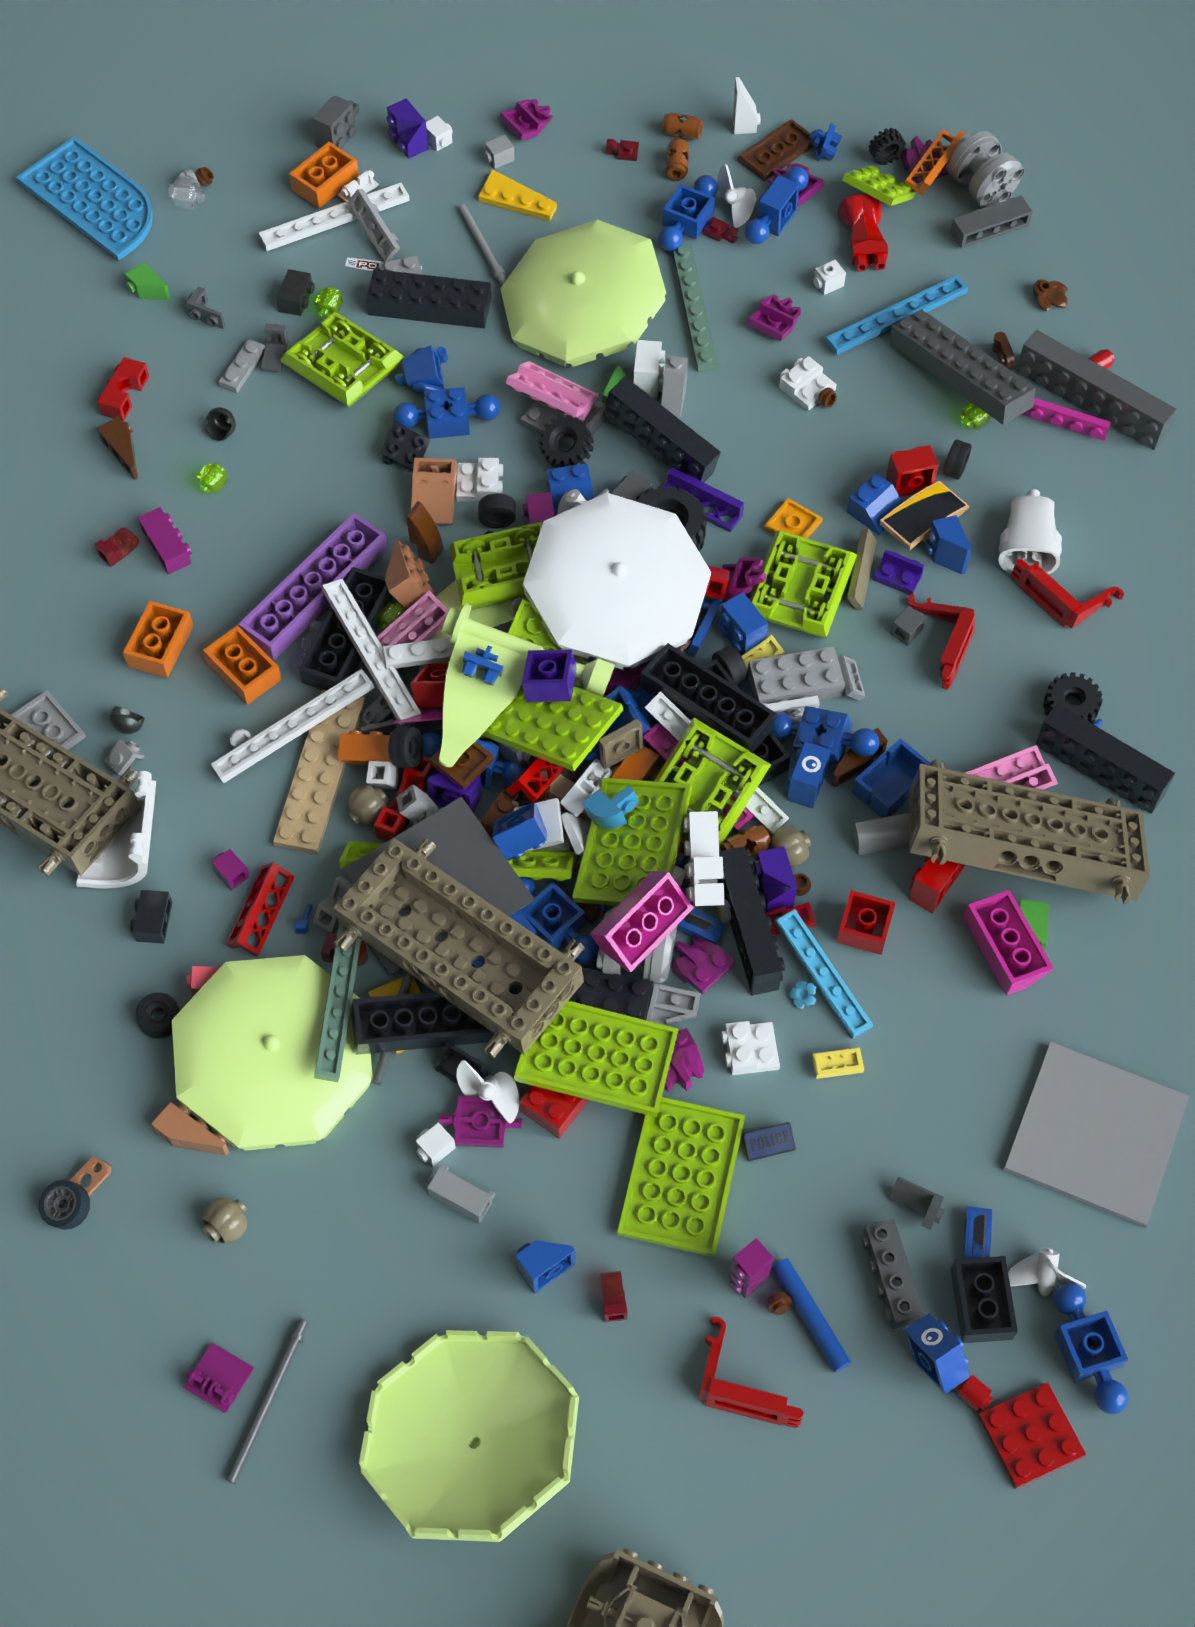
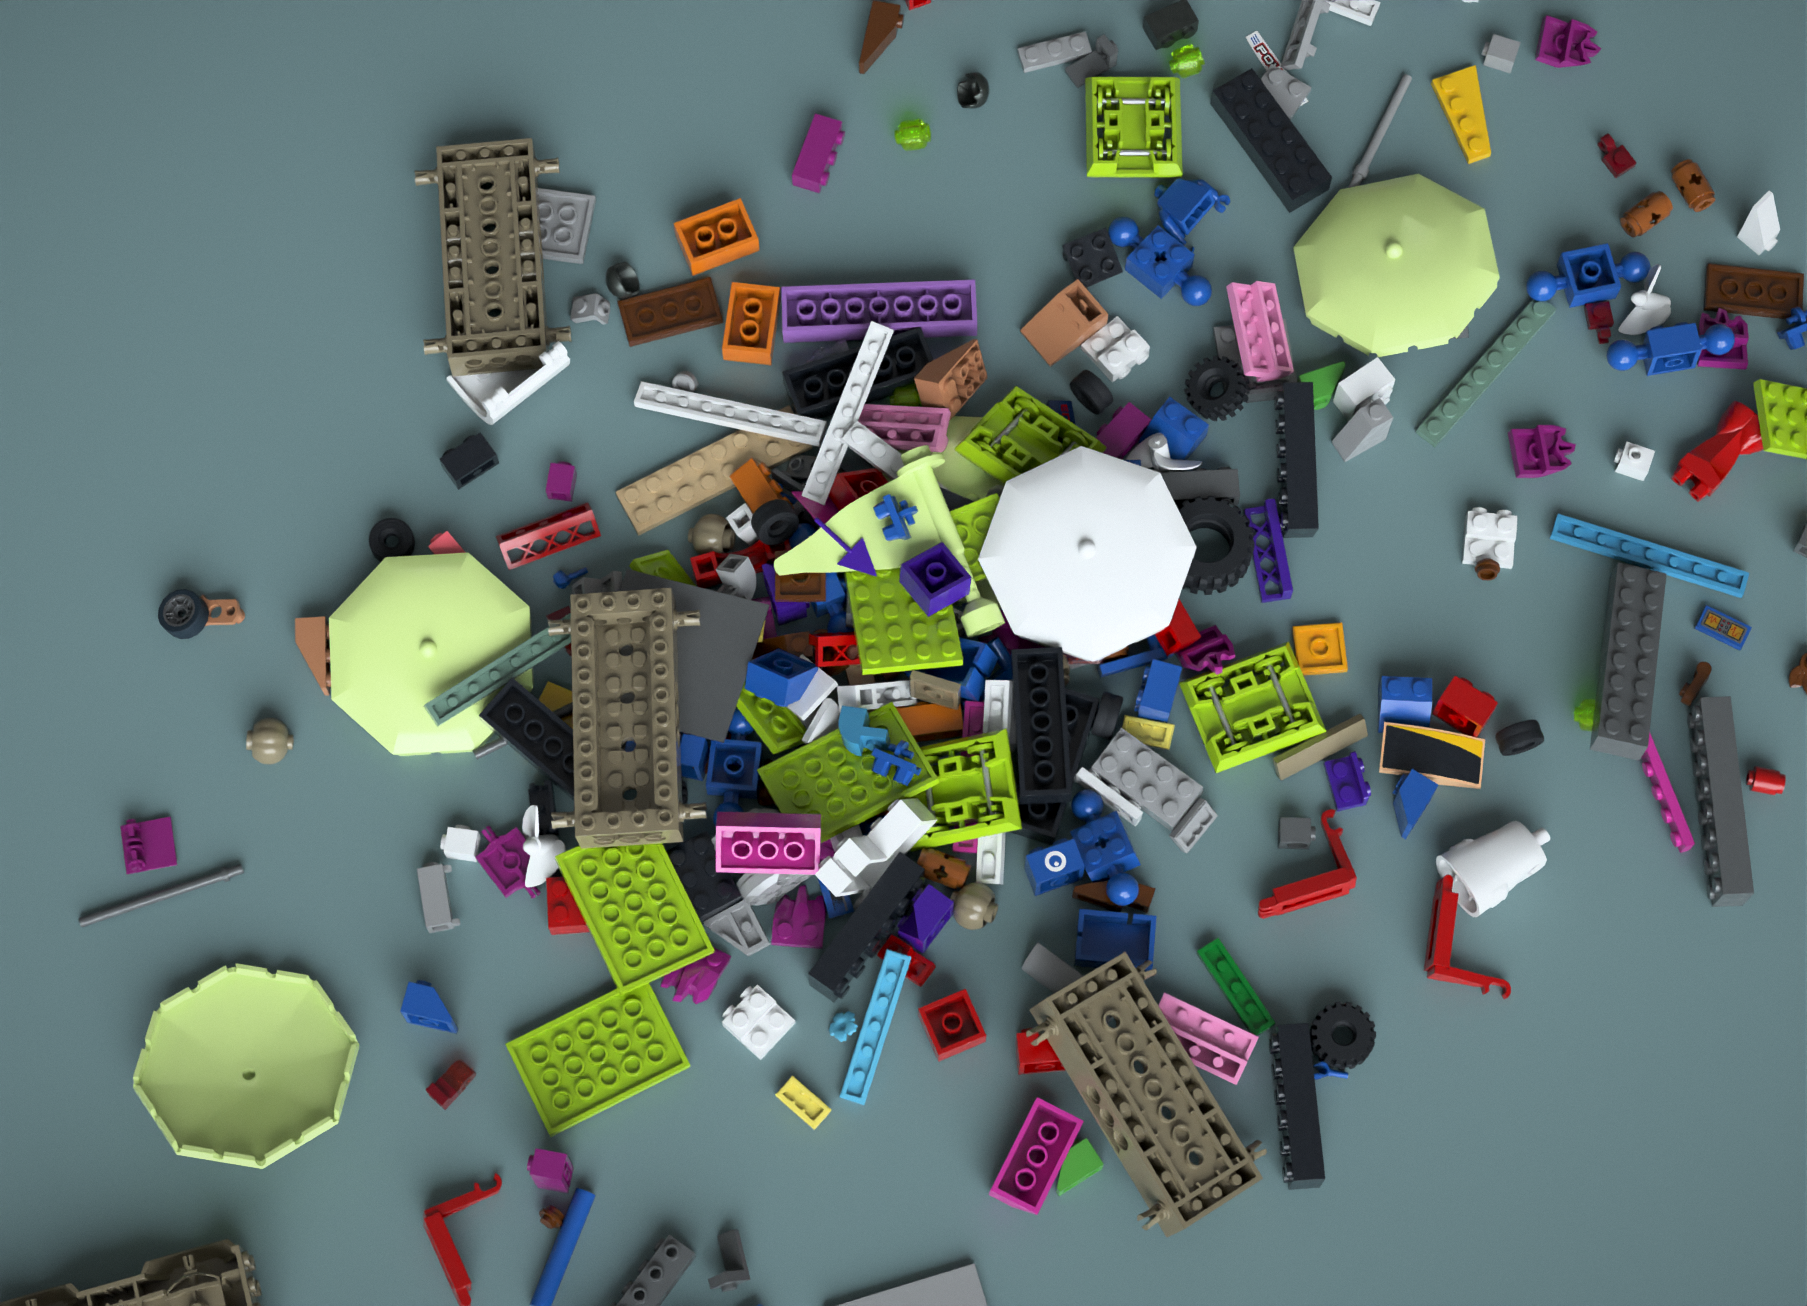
camera: 50 degrees right, 10 degrees up
(117, 546) = (778, 122): leg -> none
(178, 711) = (670, 312): none -> reddish brown tile
(424, 533) = (1006, 354): reddish brown slope -> none
(486, 711) = (856, 558): none -> dark purple piece
(647, 804) = (905, 769): none -> blue hips
(768, 1141) = (685, 1102): slope -> none
(803, 884) = (946, 942): reddish brown plate -> none
(978, 314) = (1723, 627): none -> tile
(984, 737) = (1235, 987): none -> green plate

